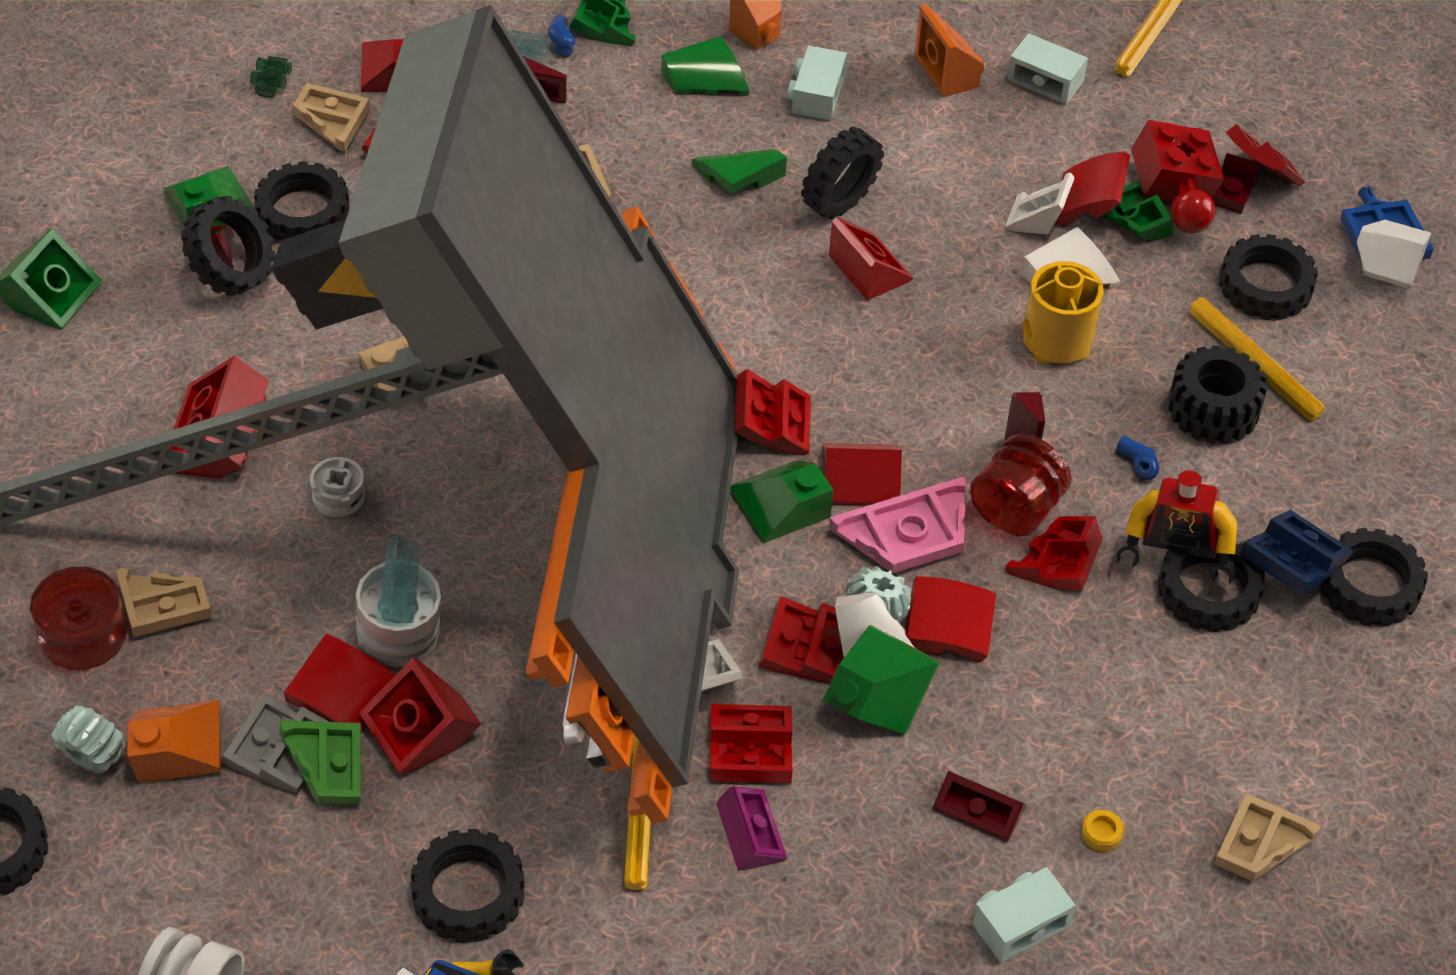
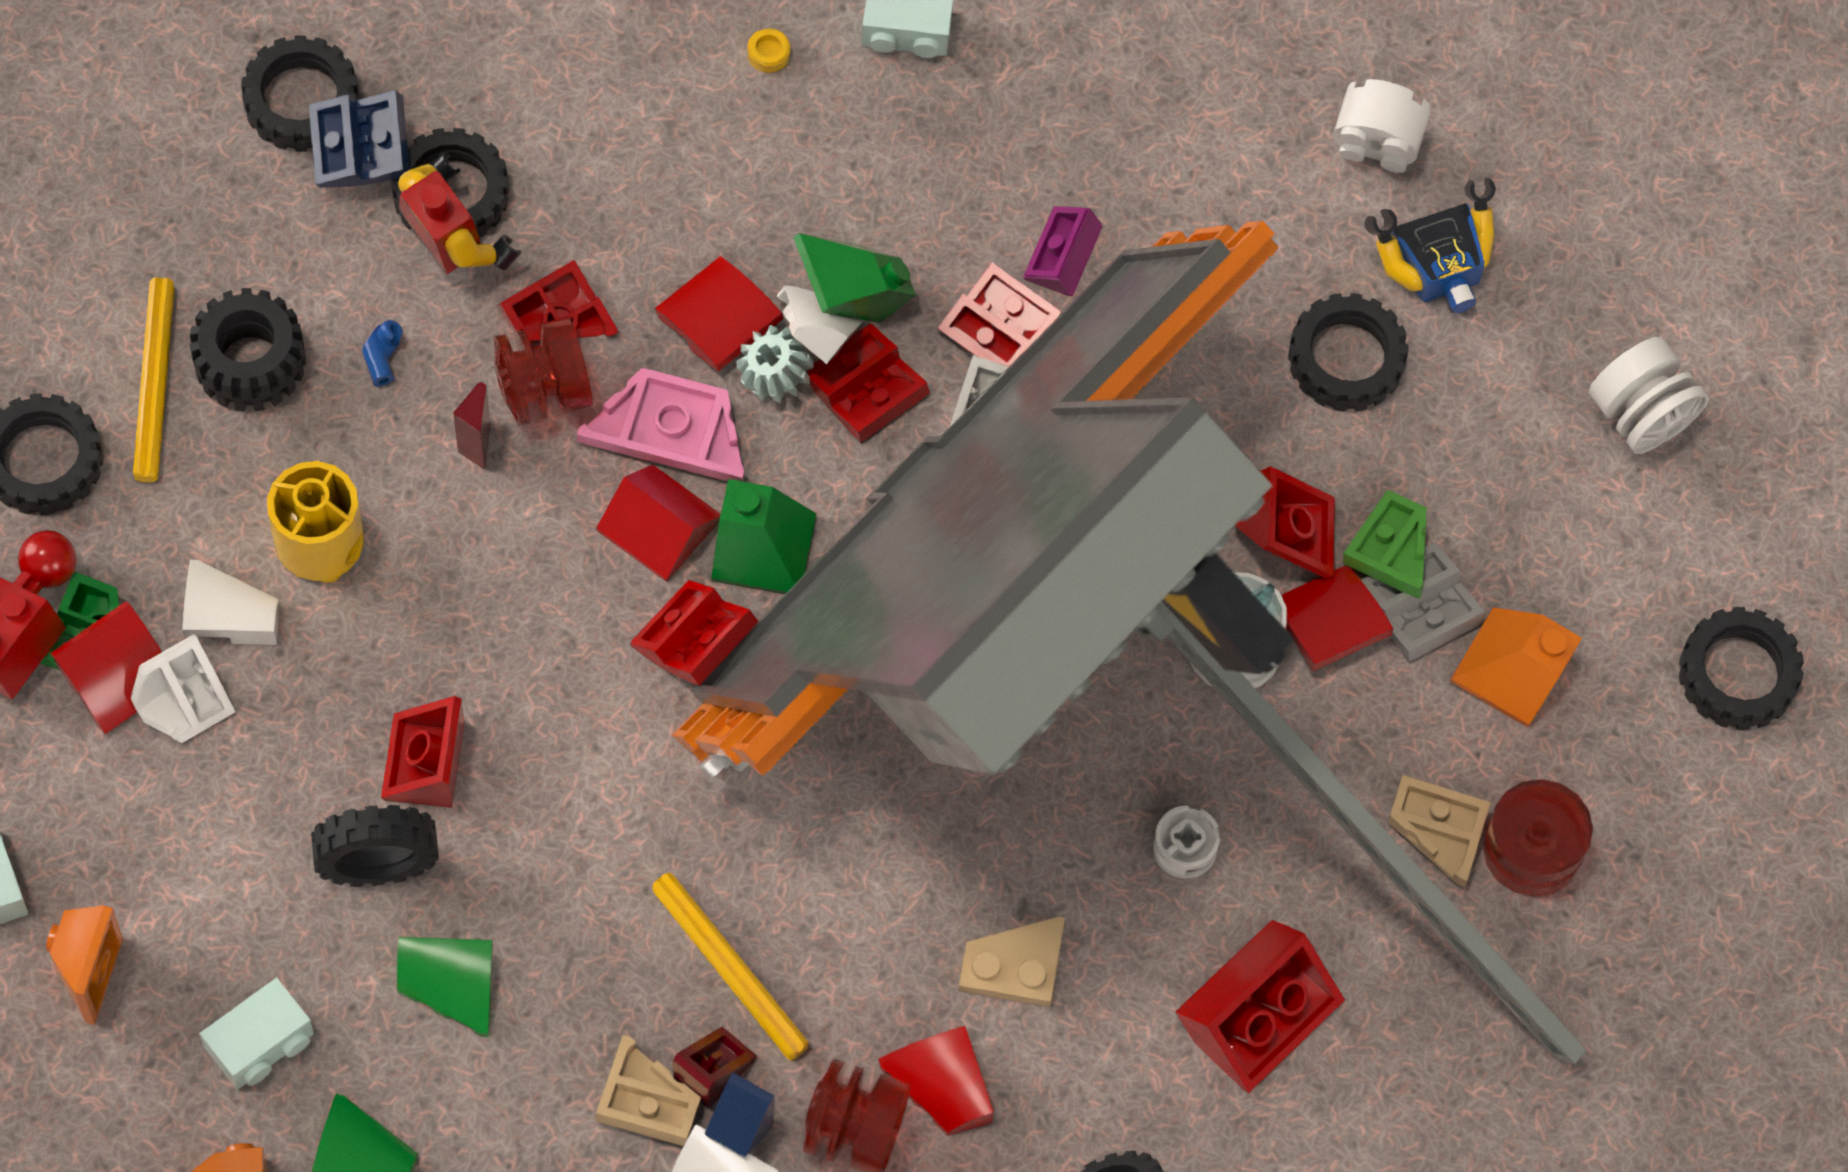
camera: 145 degrees left, 15 degrees up
(88, 739) = (1601, 696): light aqua gear -> none
(979, 806) = (849, 140): dark red slope -> none

